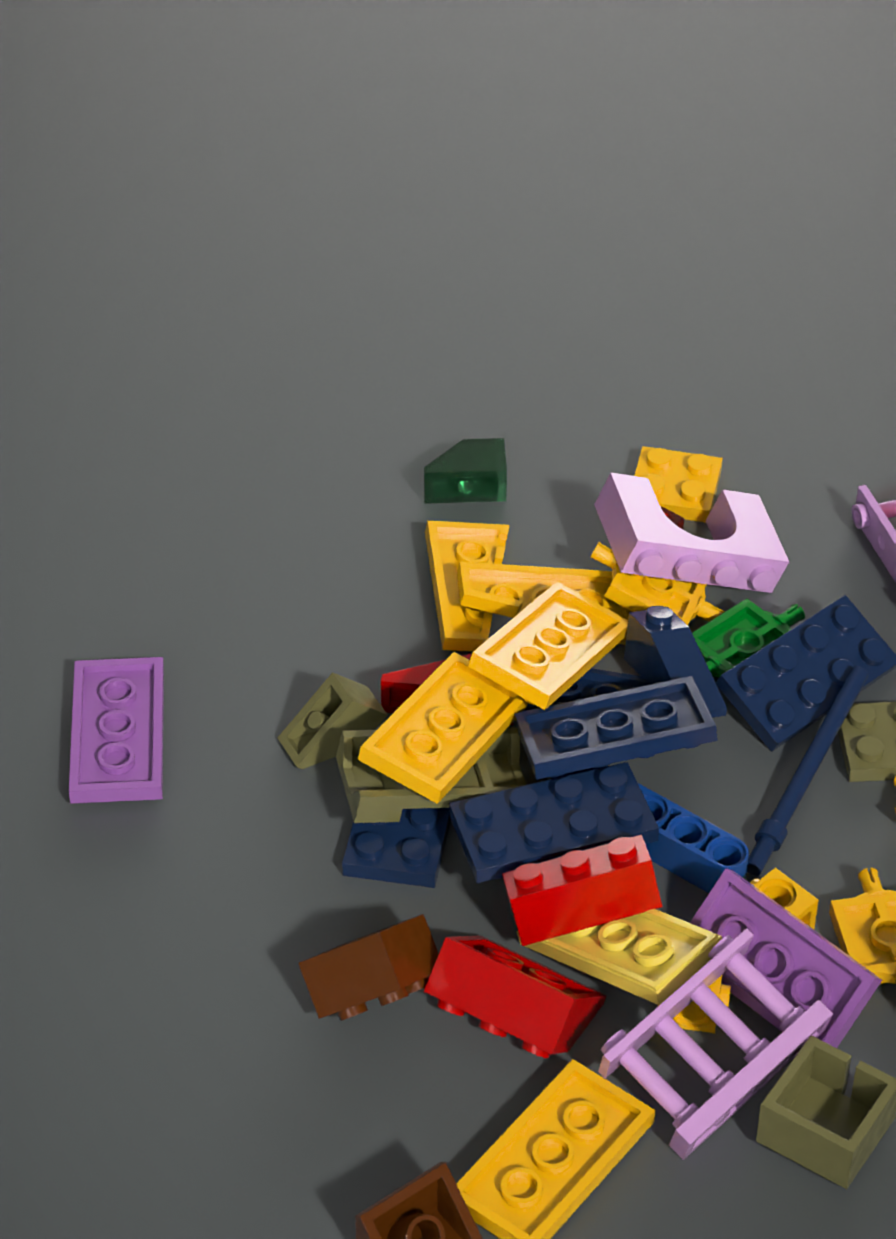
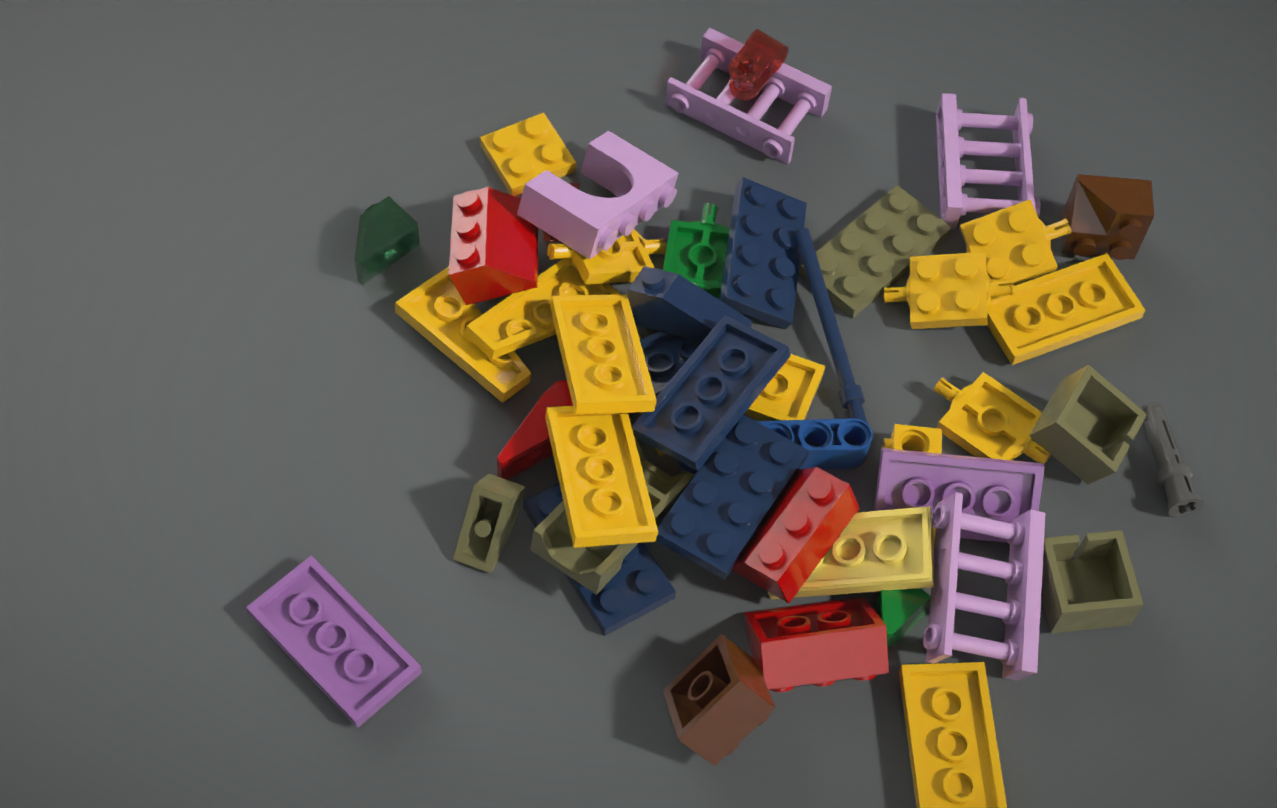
camera: 45 degrees left, 15 degrees up
(545, 519) = (491, 246): none -> red slope
(607, 1015) = (901, 610): none -> green slope
(705, 780) = (789, 392): none -> yellow plate

